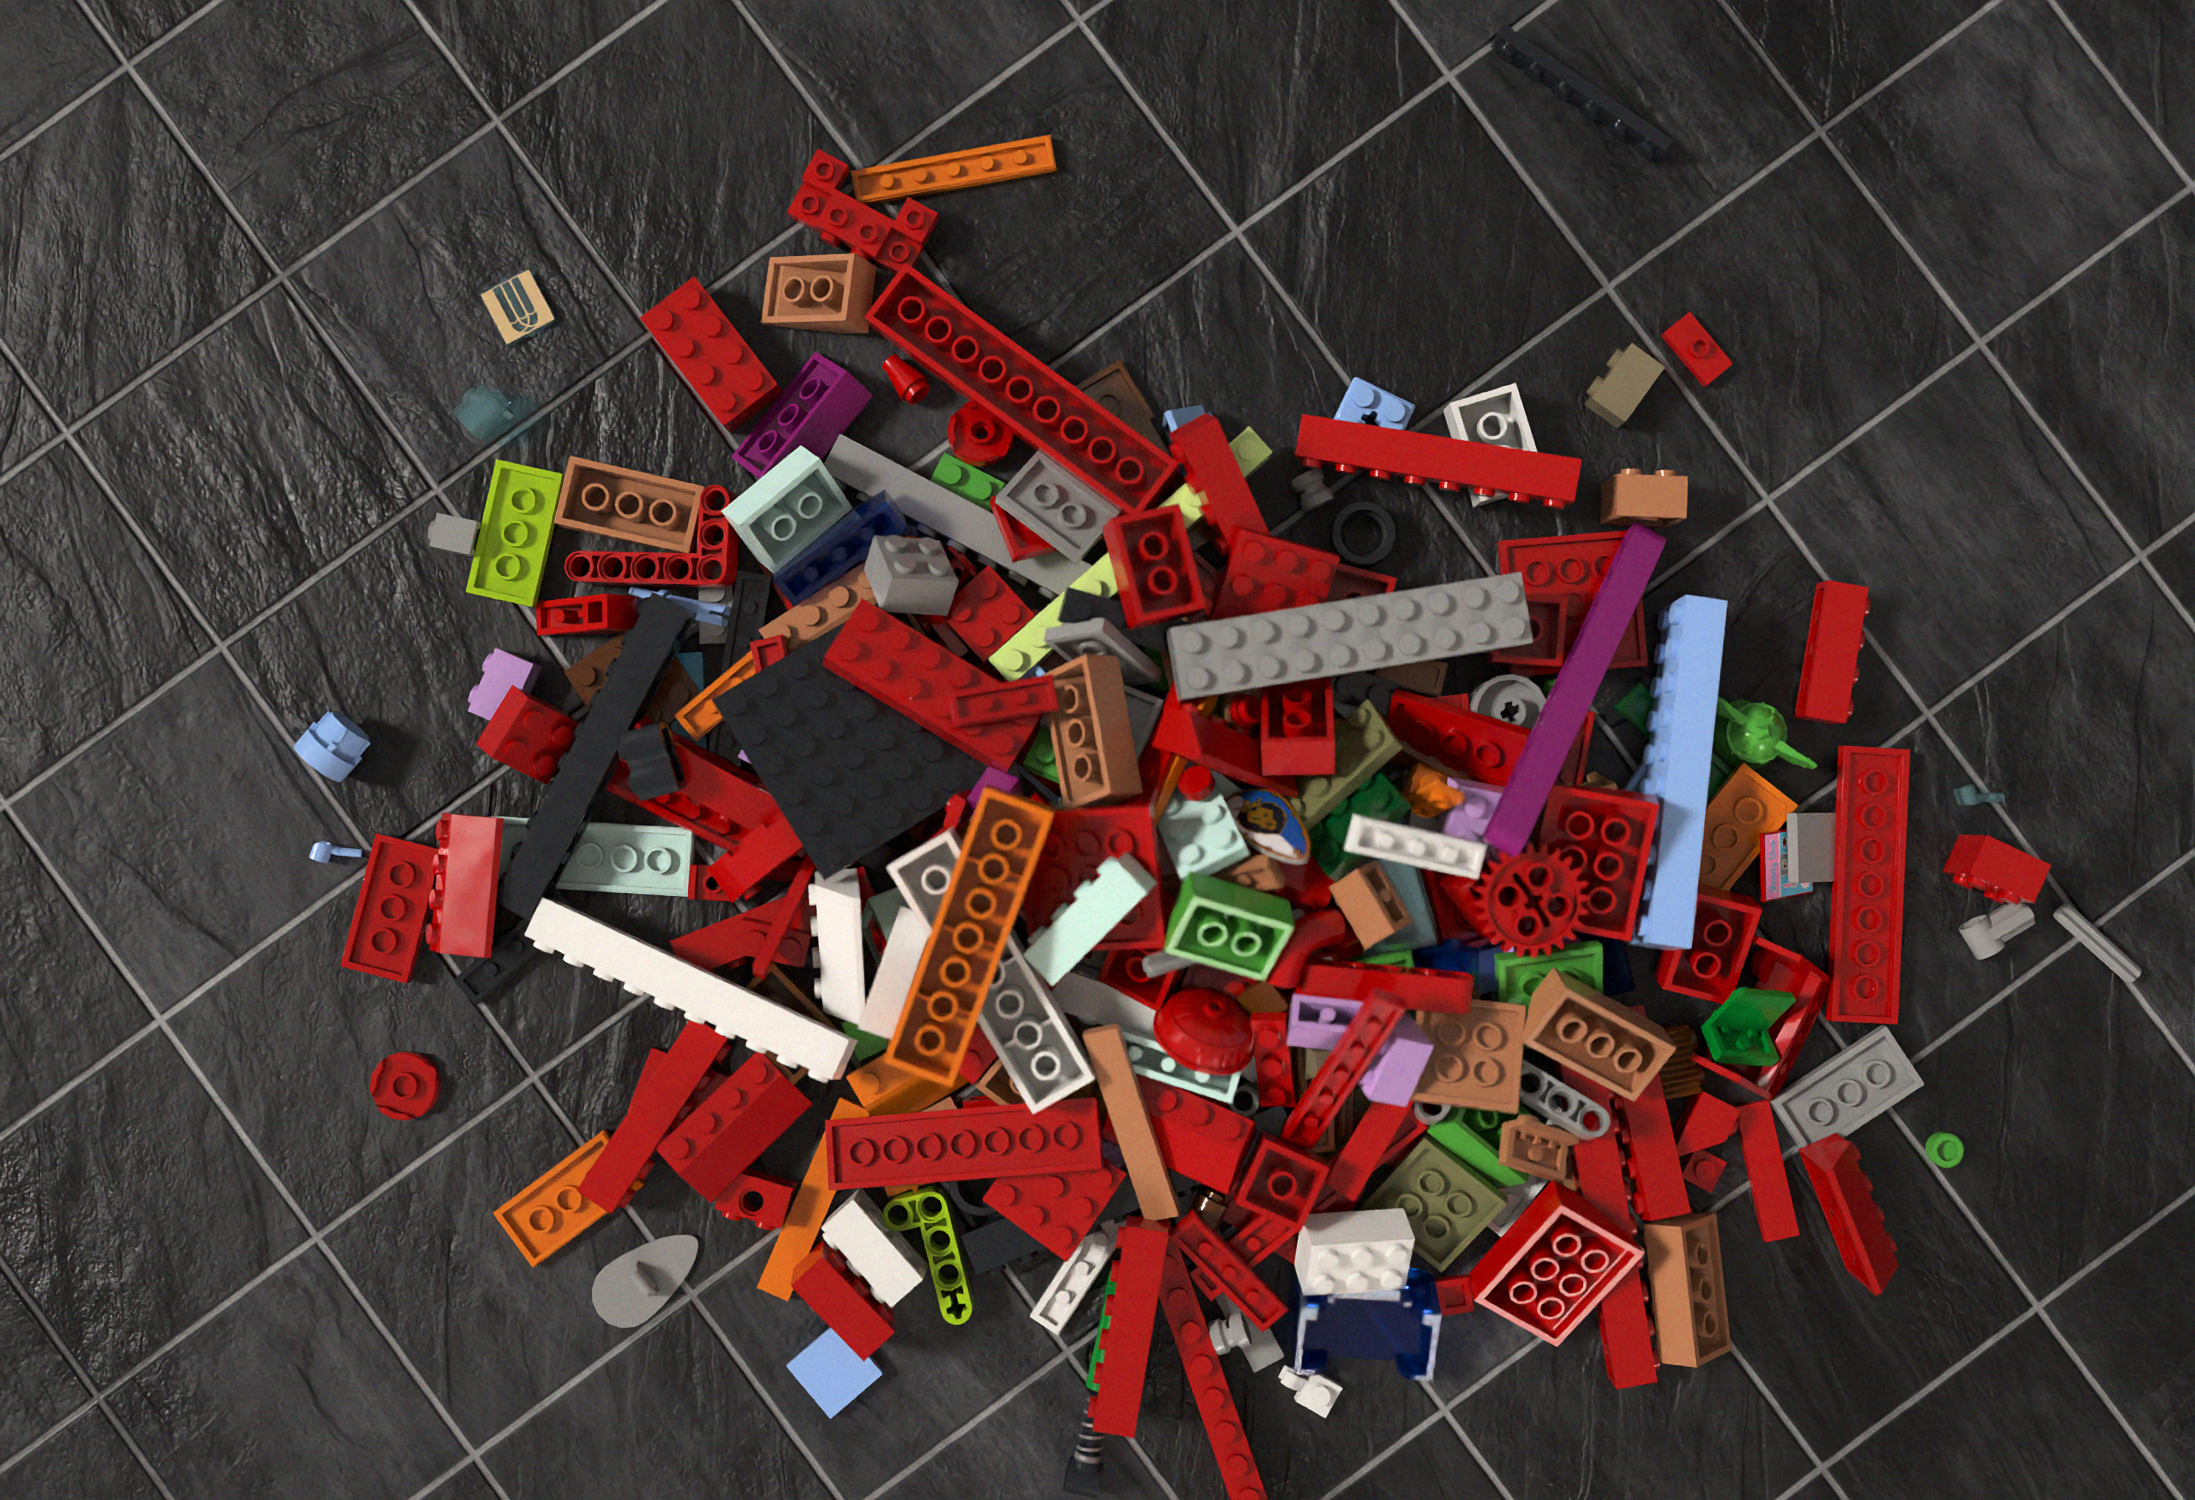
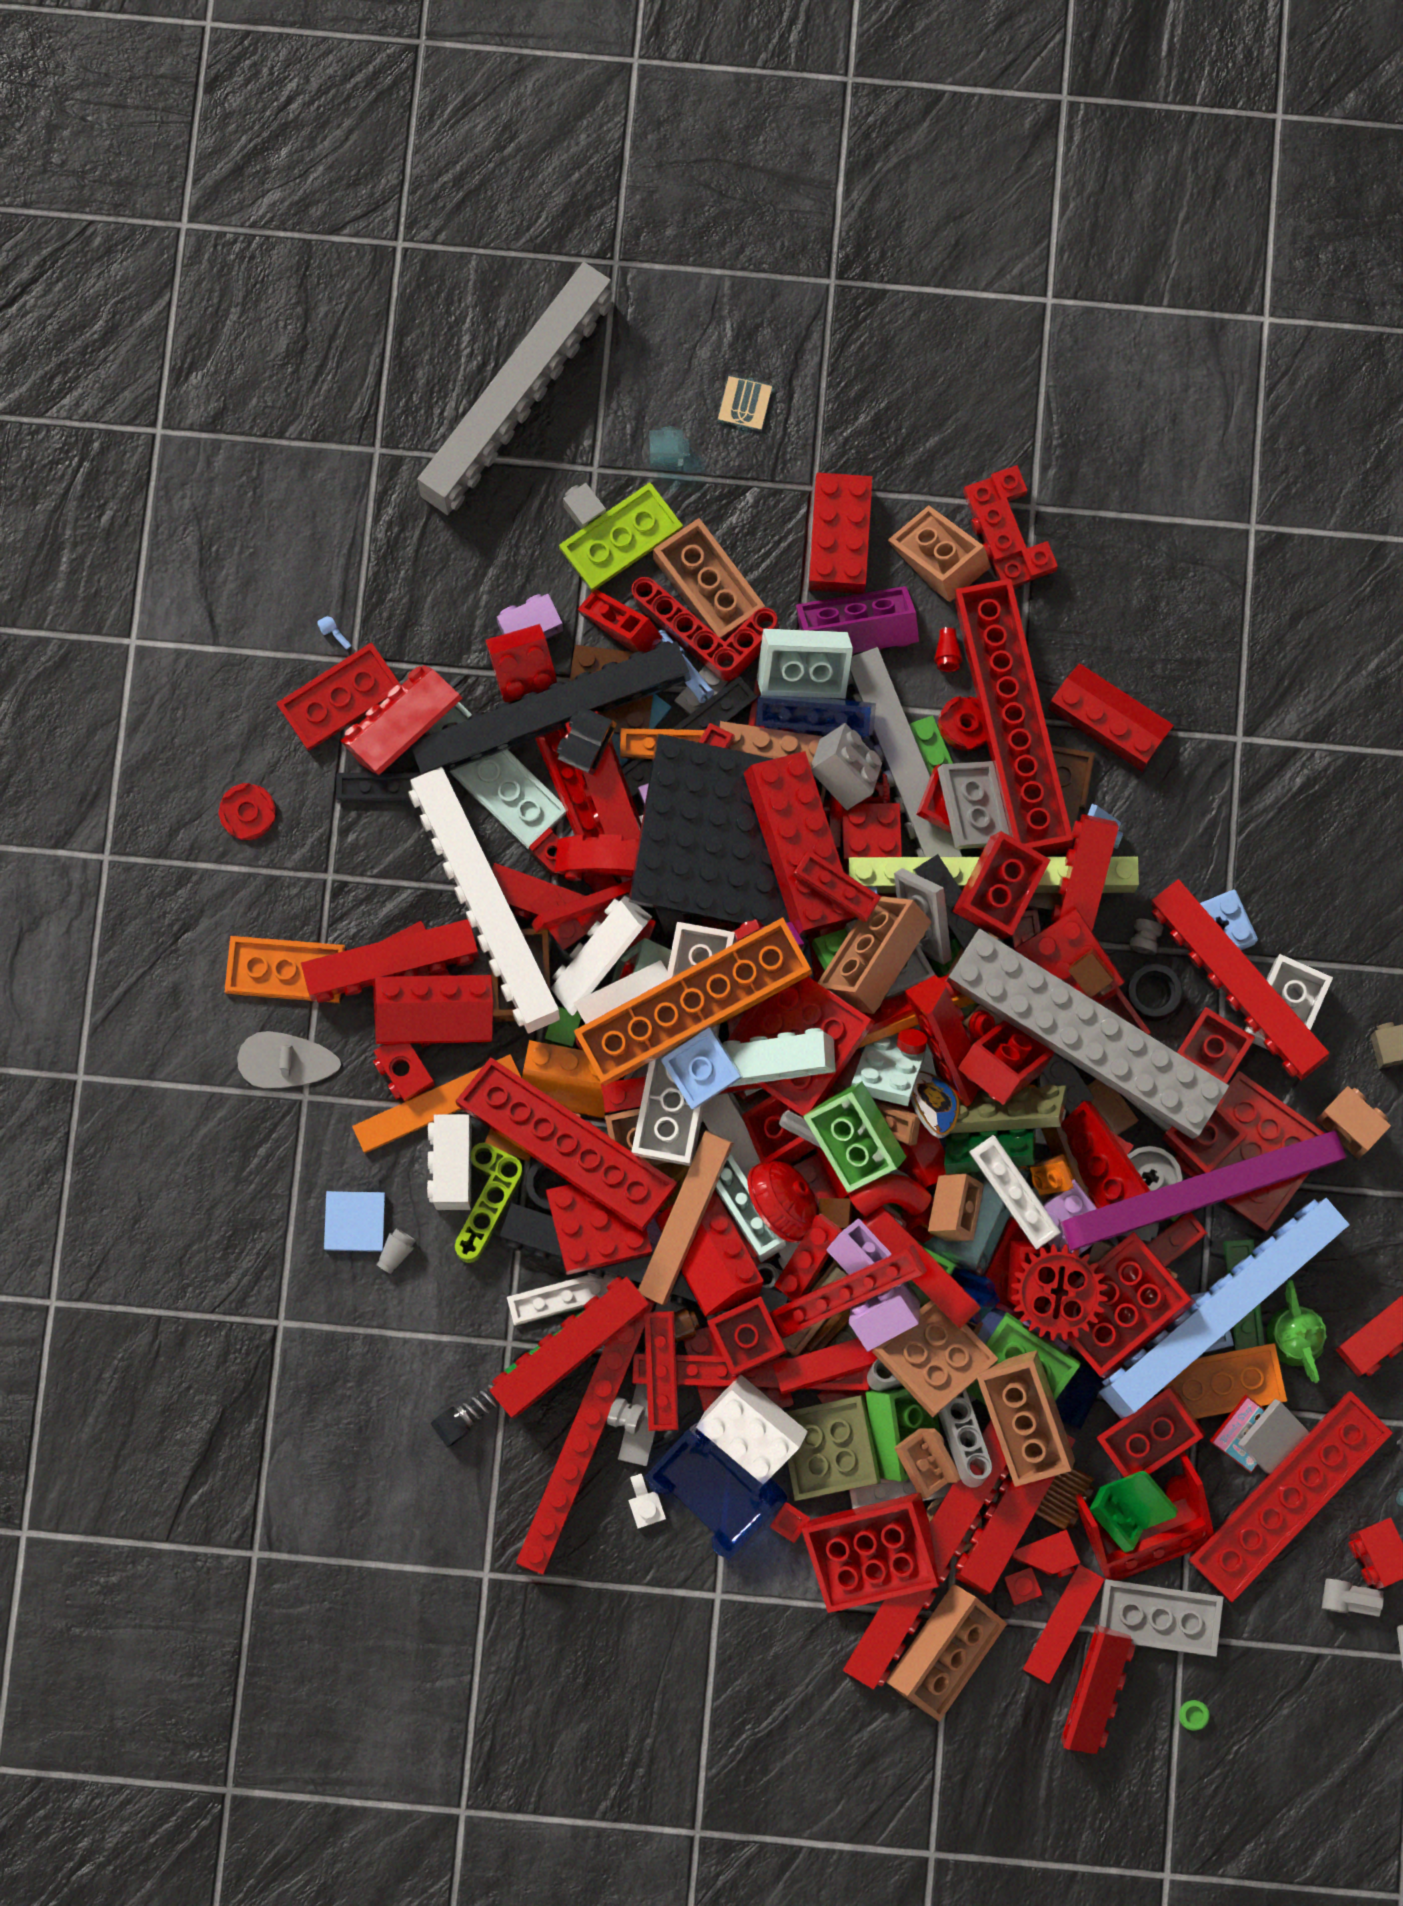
camera: 35 degrees right, 10 degrees down
(292, 478) = (516, 389): none -> light grey brick
(333, 745) = (395, 567): light blue piece -> none
(843, 1300) = (405, 1176): red brick -> none
(894, 1363) = (395, 1250): none -> light grey cone
(954, 170) = (1092, 550): orange tile -> none
(1030, 987) = (701, 1068): none -> light blue plate
(1106, 312) = (1110, 716): none -> red slope
(1307, 577) = (1092, 974): none -> reddish brown brick
(1461, 541) = (1215, 1045): none -> red brick

